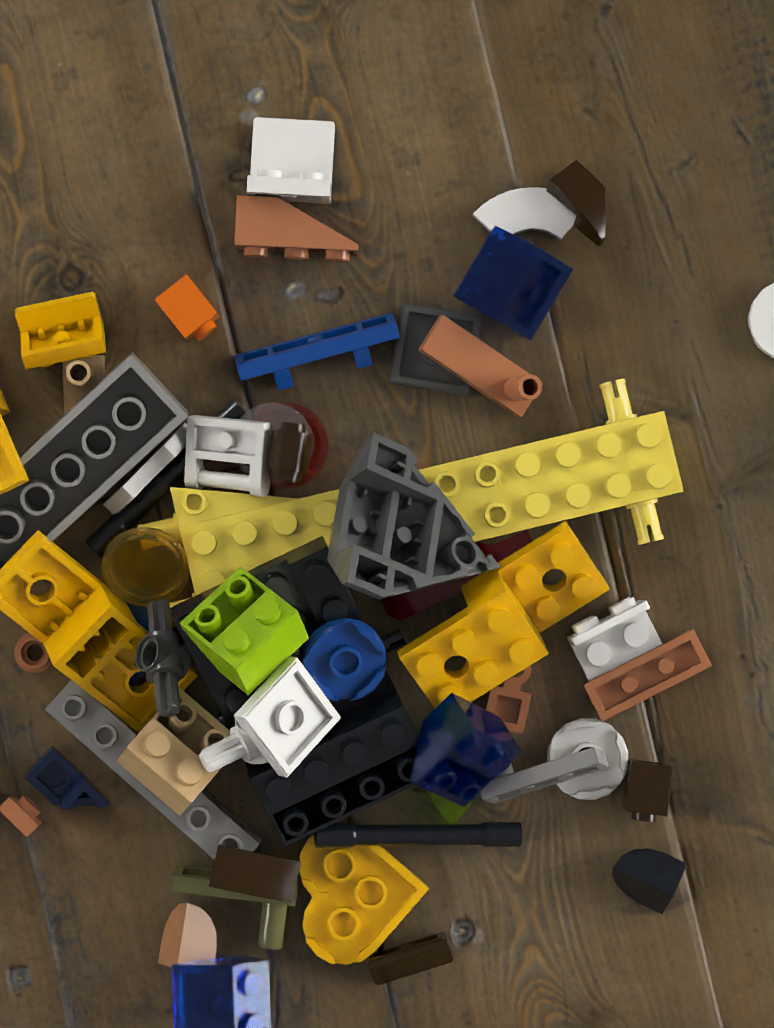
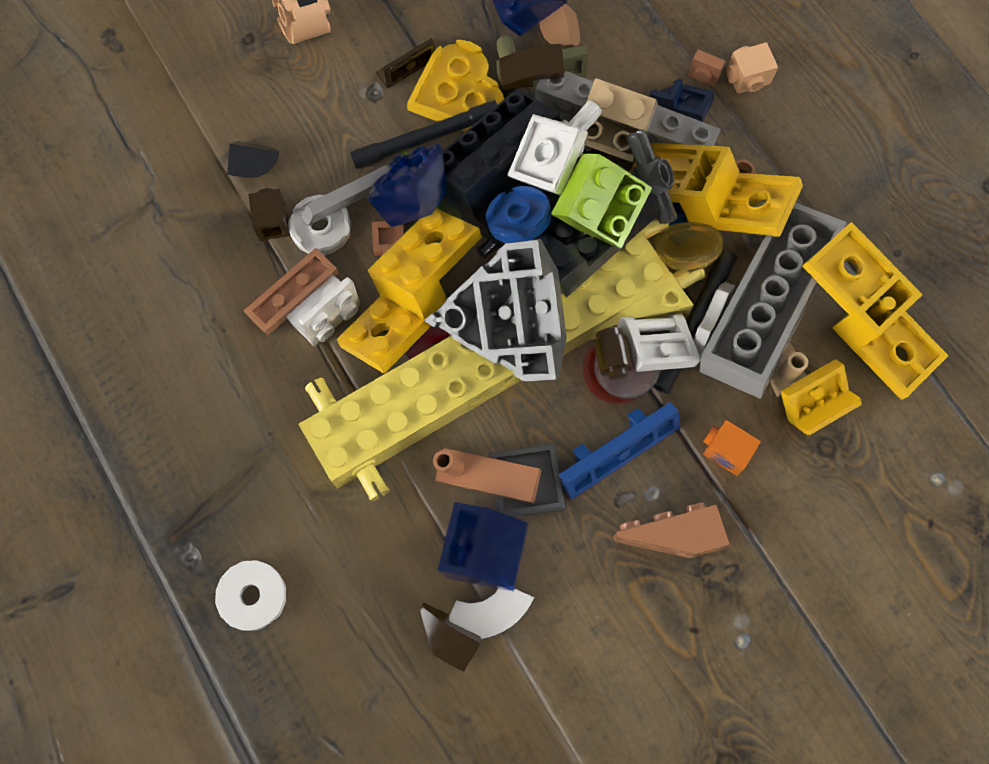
camera: 160 degrees right, 15 degrees down
(292, 160) = (694, 592): white bracket -> none

